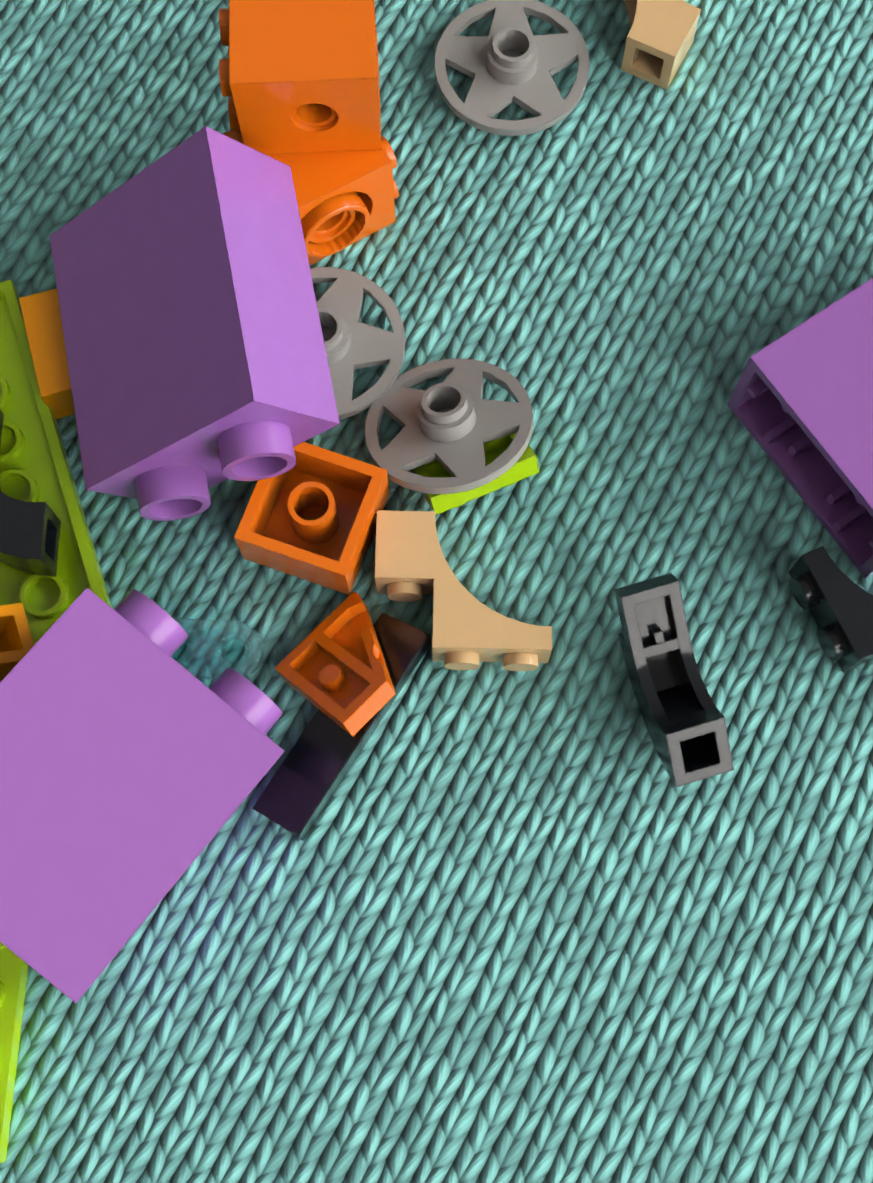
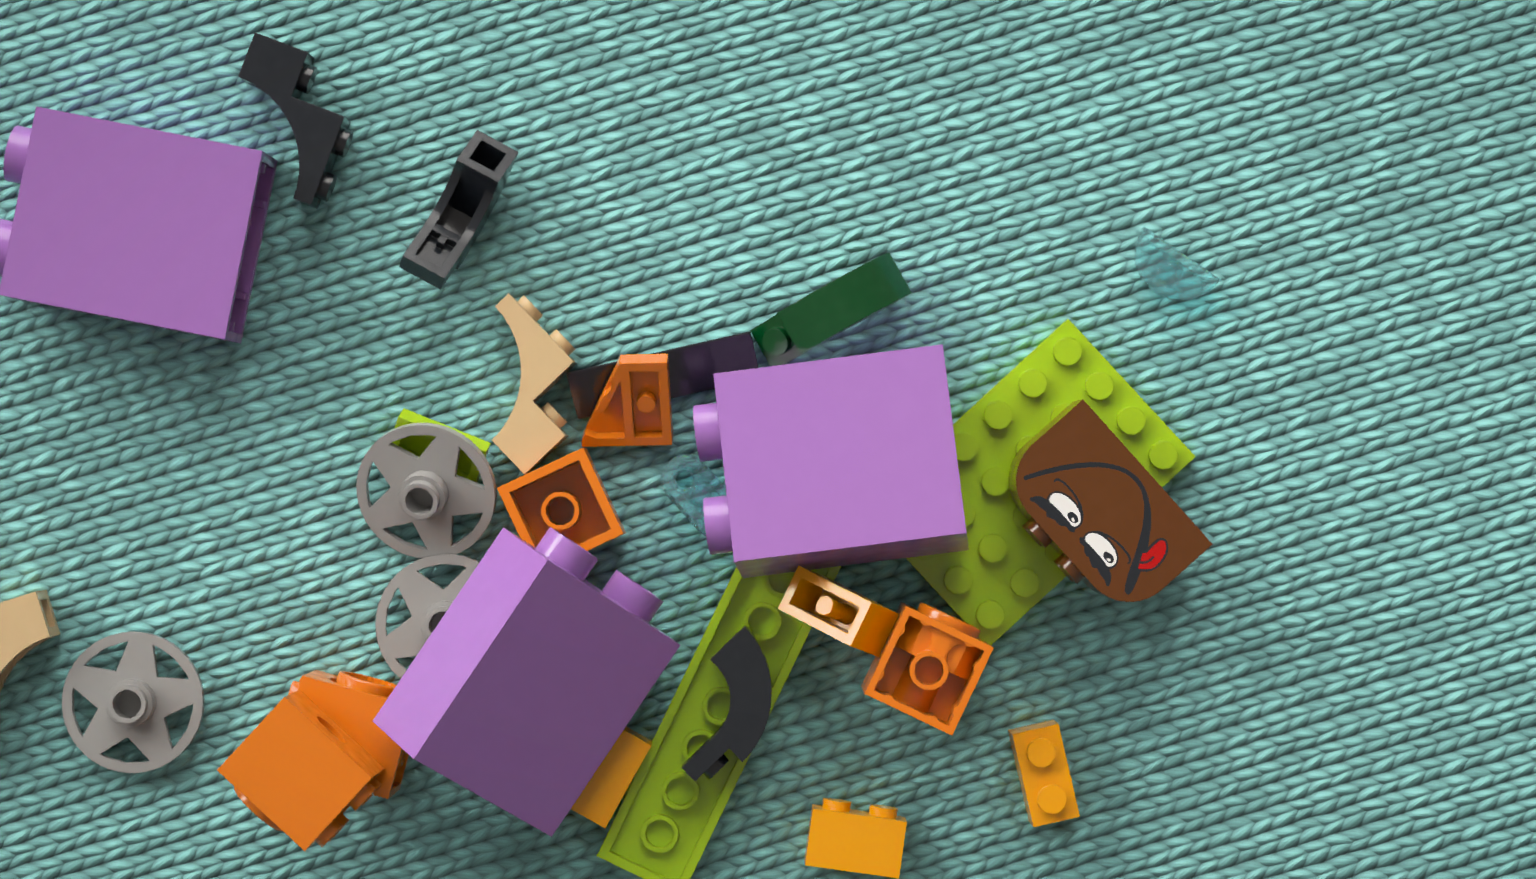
camera: 135 degrees left, 15 degrees up
(237, 936) = (831, 310): none -> dark green arch

